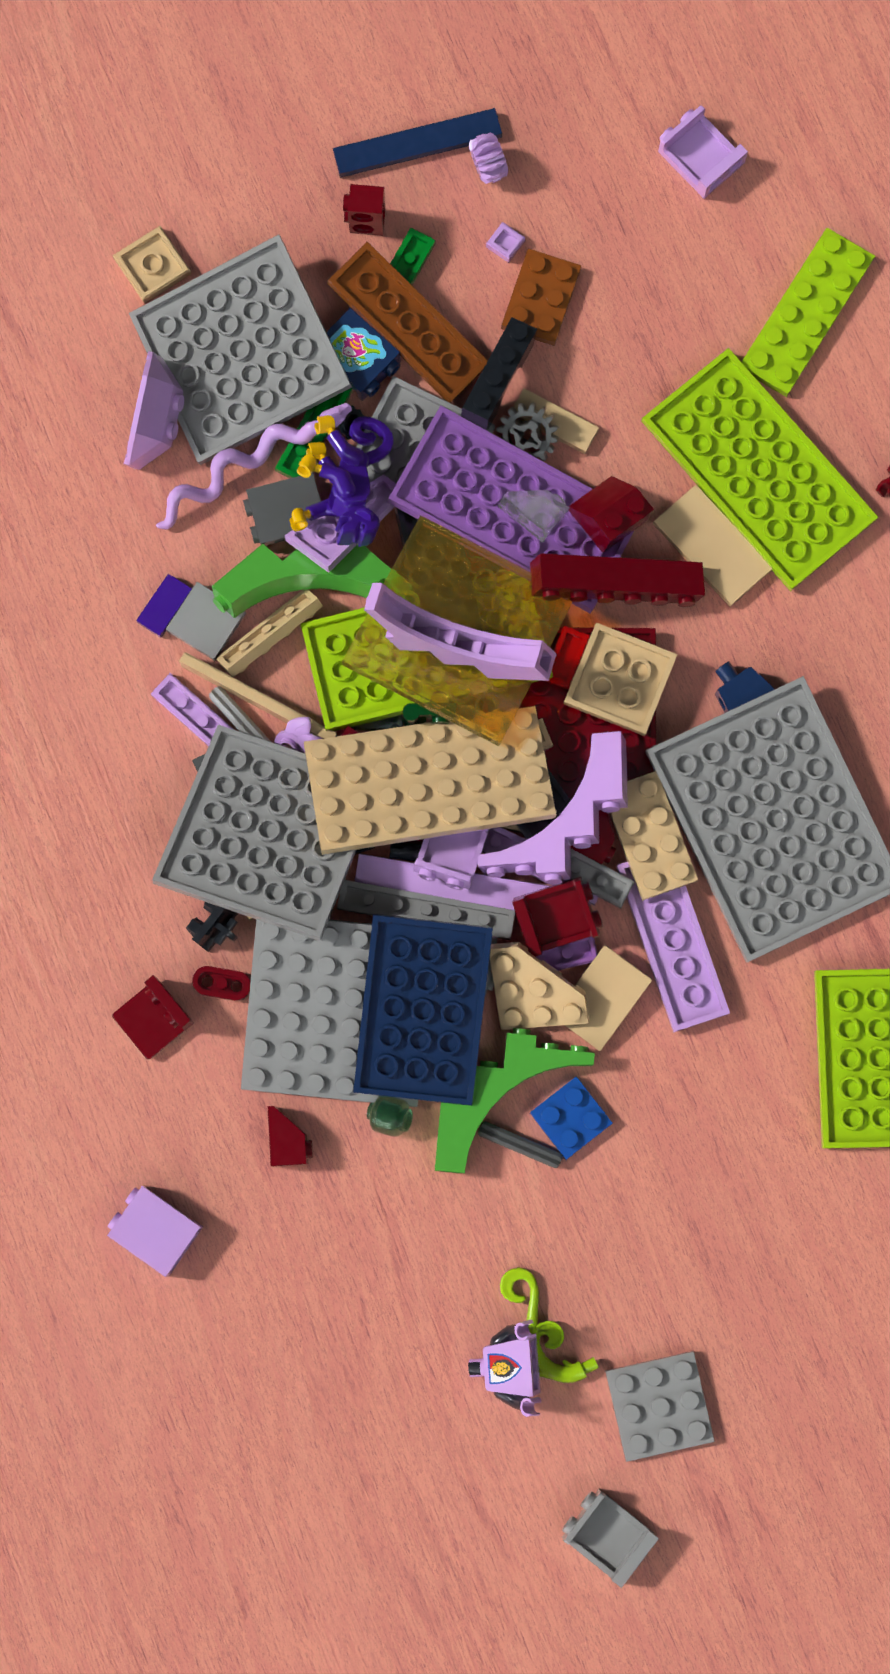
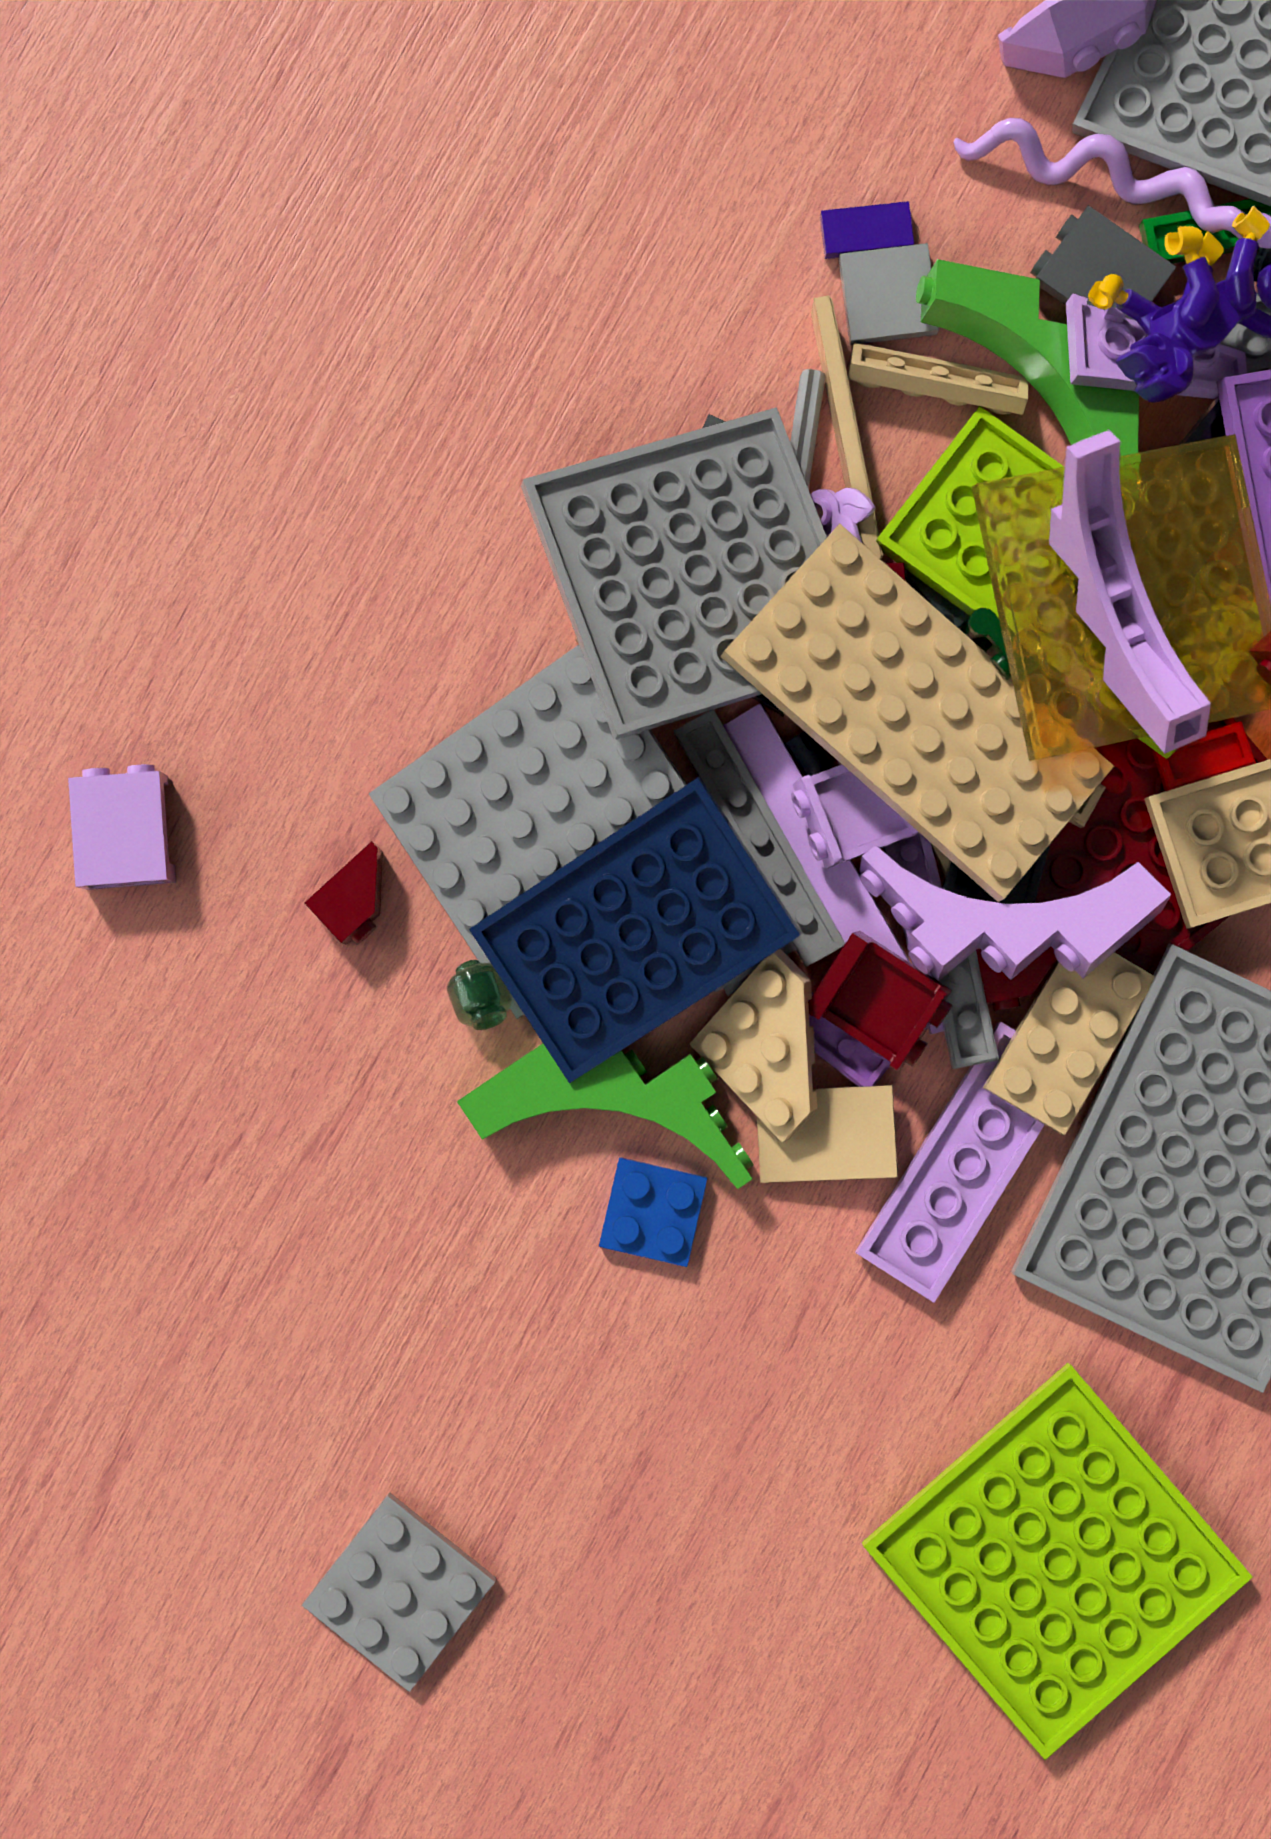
camera: 50 degrees right, 5 degrees up
(152, 1018) = (367, 621): dark red bracket -> none
(188, 708) = (767, 358): lavender tile -> none
(215, 928) = (530, 606): black hips -> none
(222, 983) = (474, 670): dark red plate -> none
(511, 1367) = (298, 1383): lavender torso -> none
(520, 1144) = (572, 1177): dark grey axle -> none
(547, 1369) = (335, 1423): lime plant -> none
(609, 1536) = (198, 1657): light grey panel -> none

